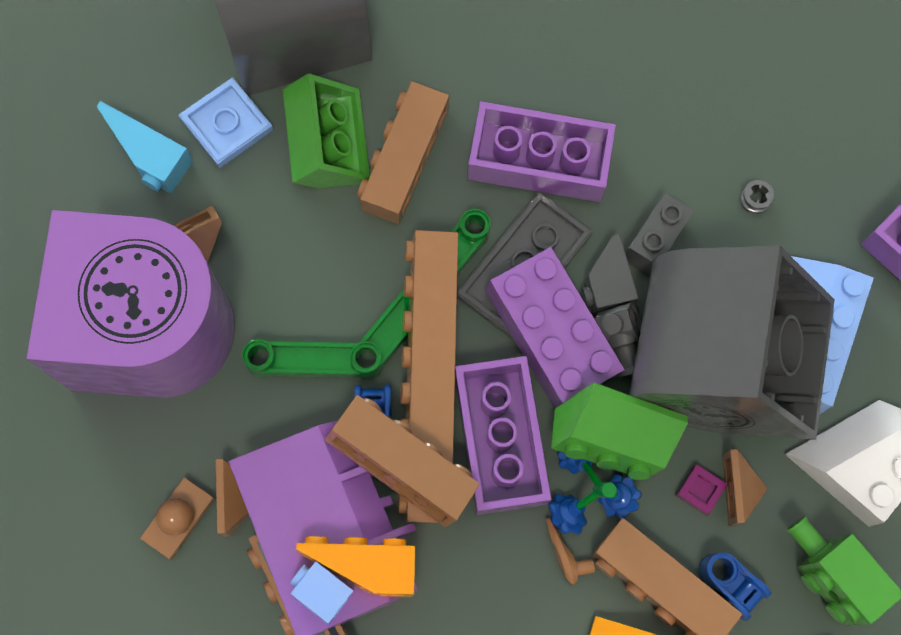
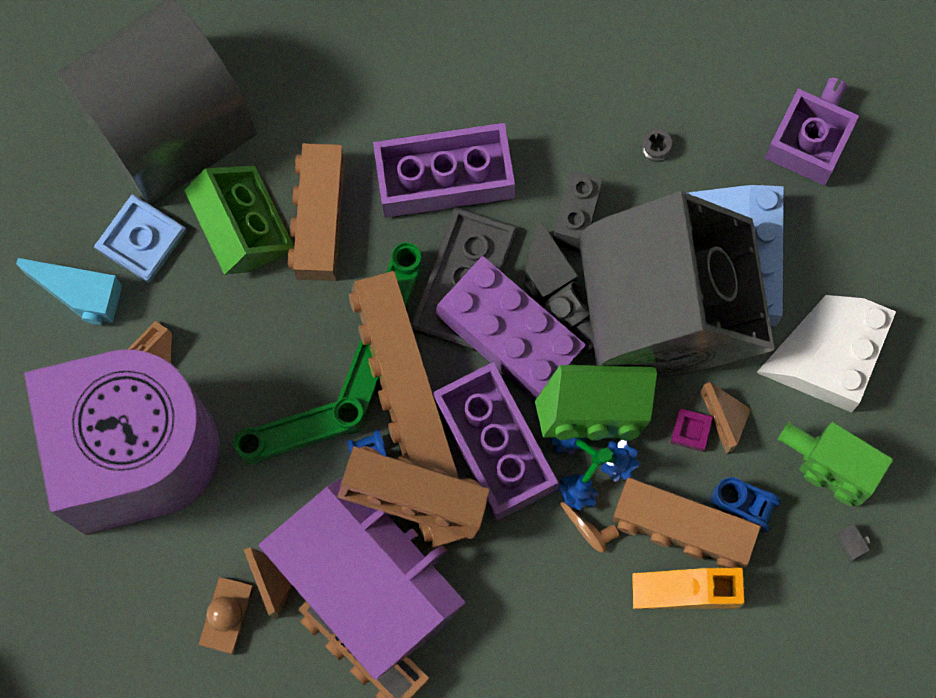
camera: 10 degrees left, 0 degrees up
(320, 591) = (380, 629): light blue brick -> none
(376, 569) = (418, 594): light orange slope -> none

